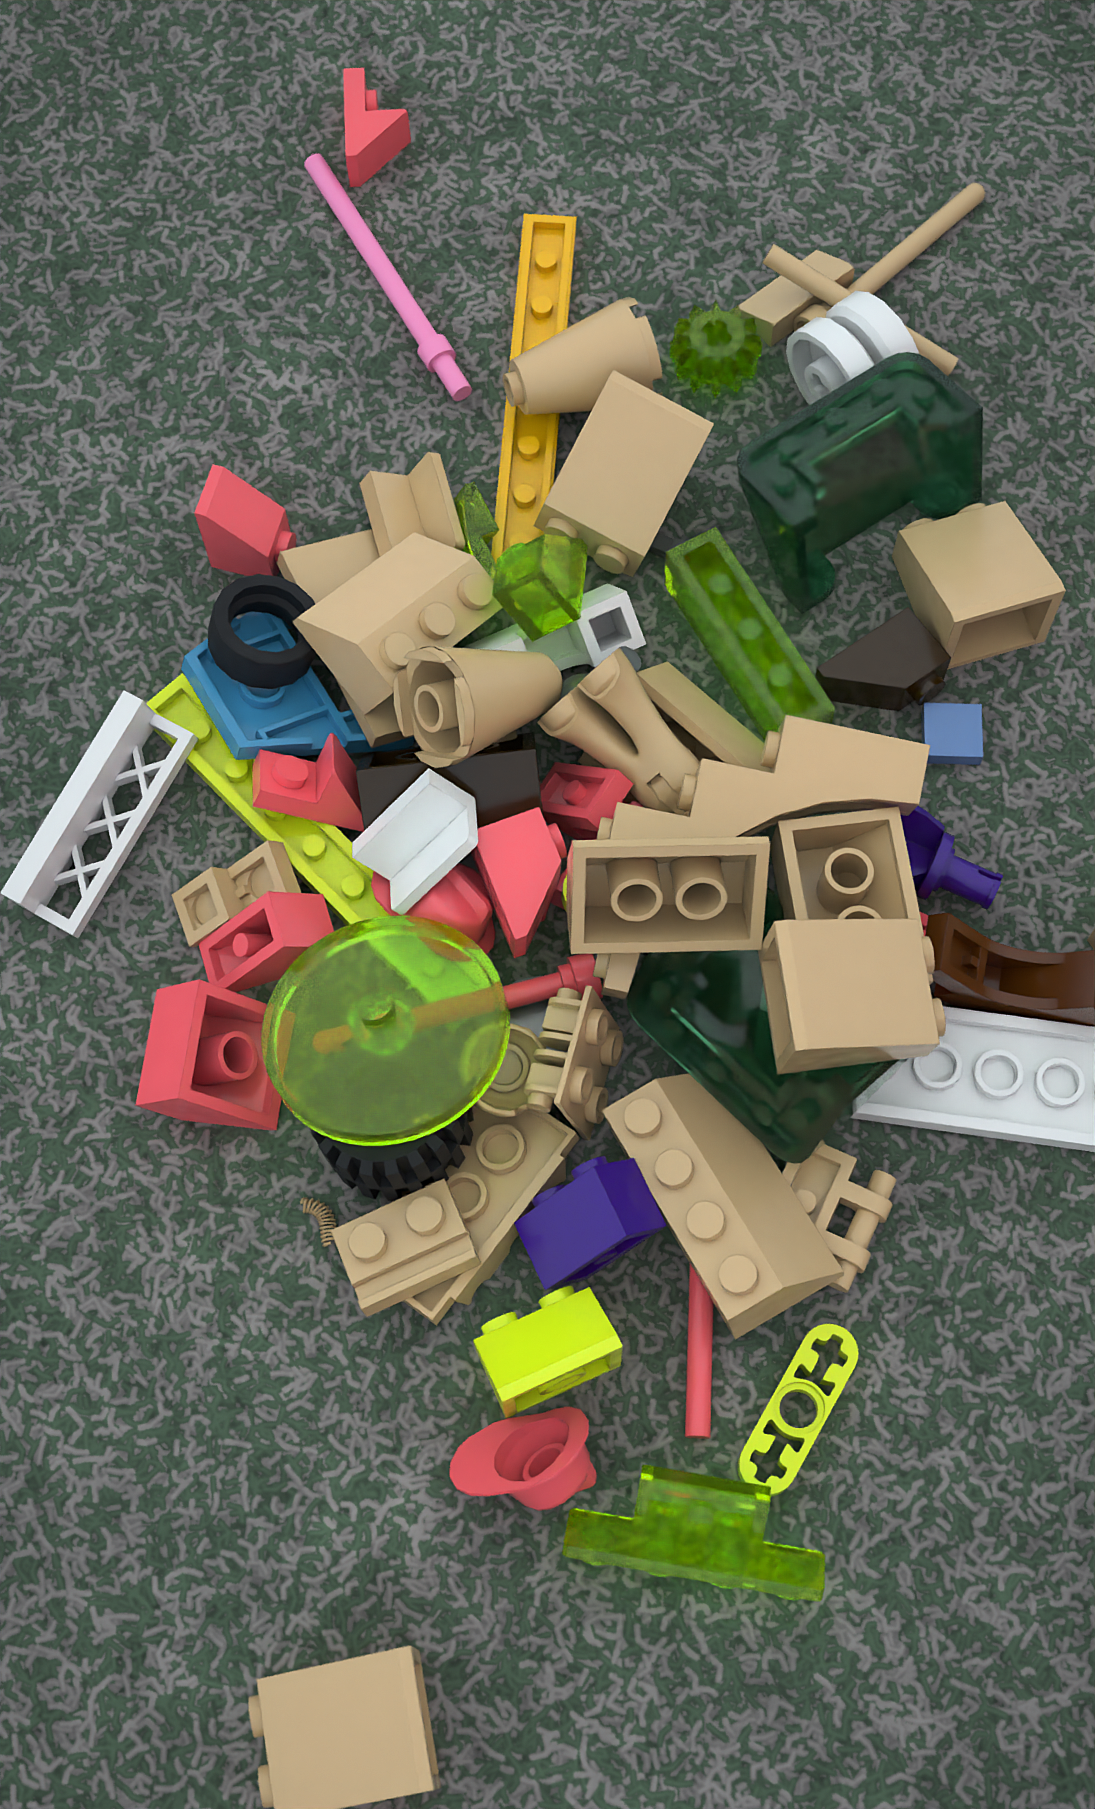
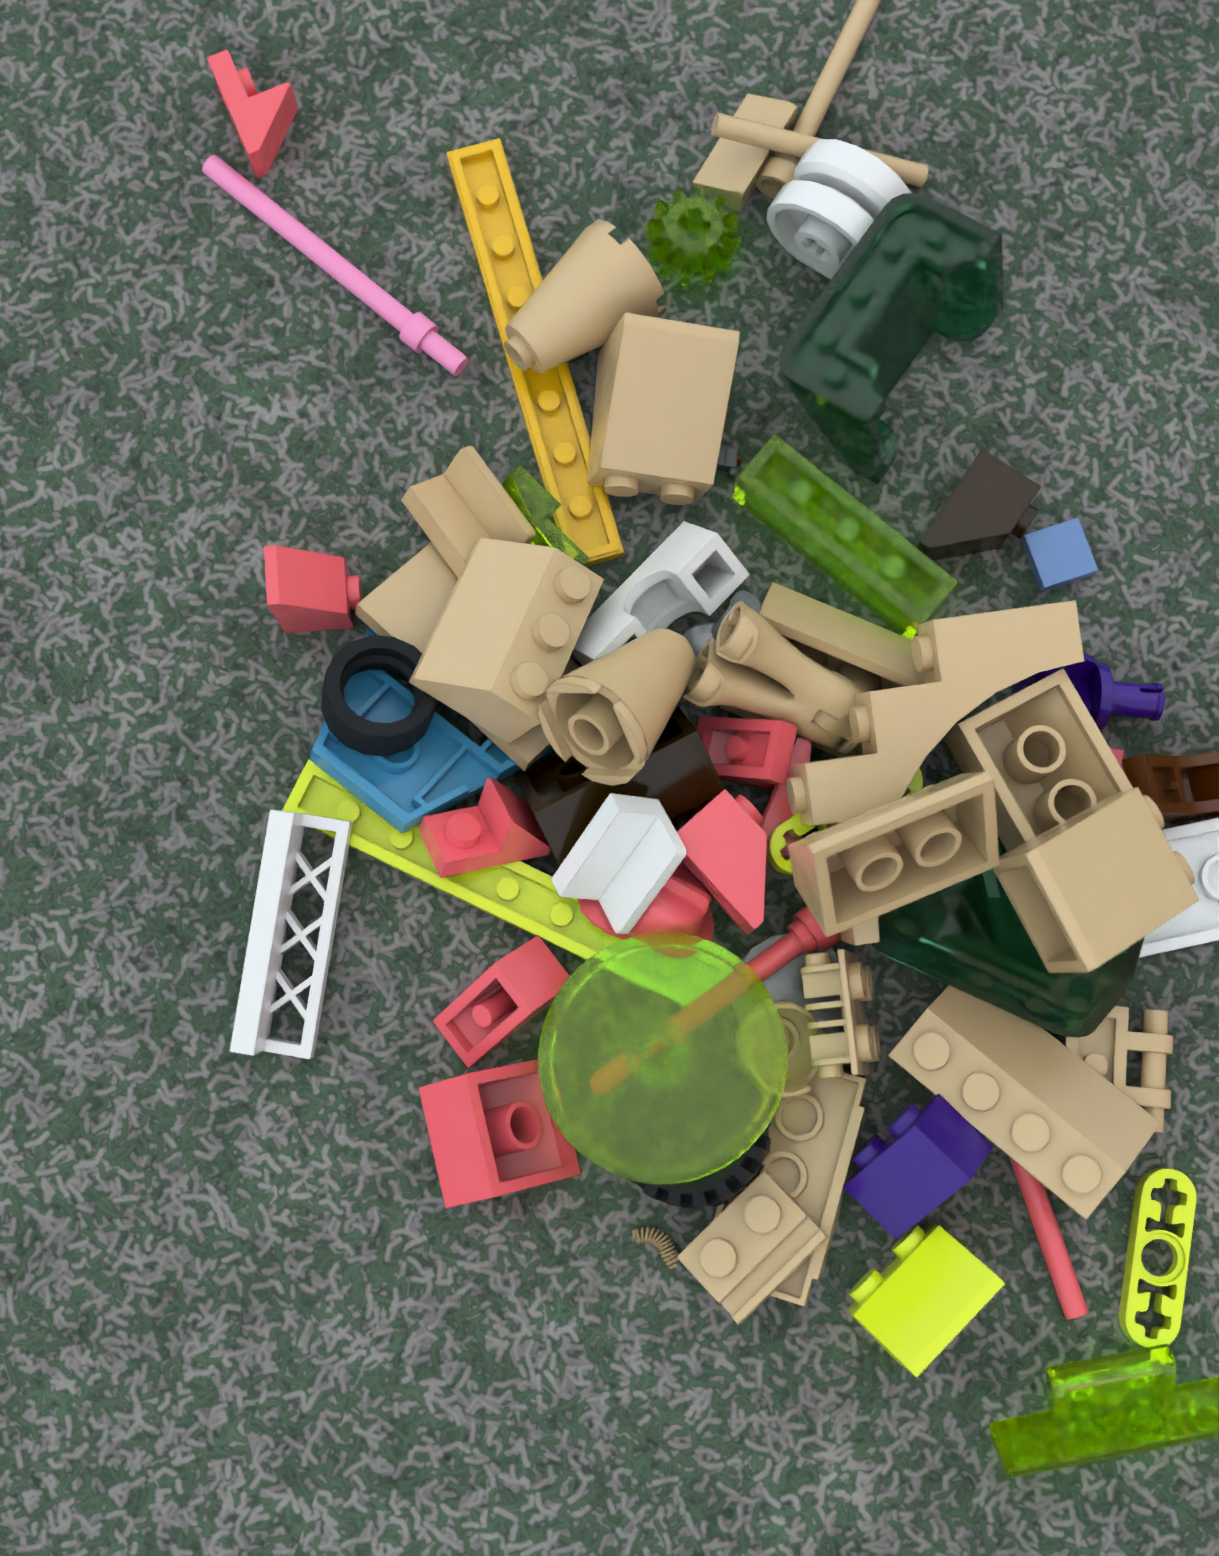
camera: 25 degrees left, 10 degrees up
(223, 893) = (451, 961): tan slope -> none
(530, 1457) = (946, 1404): coral piece -> none
(542, 583) = (635, 555): clear neon green slope -> none
(978, 582) = (1033, 394): tan slope -> none

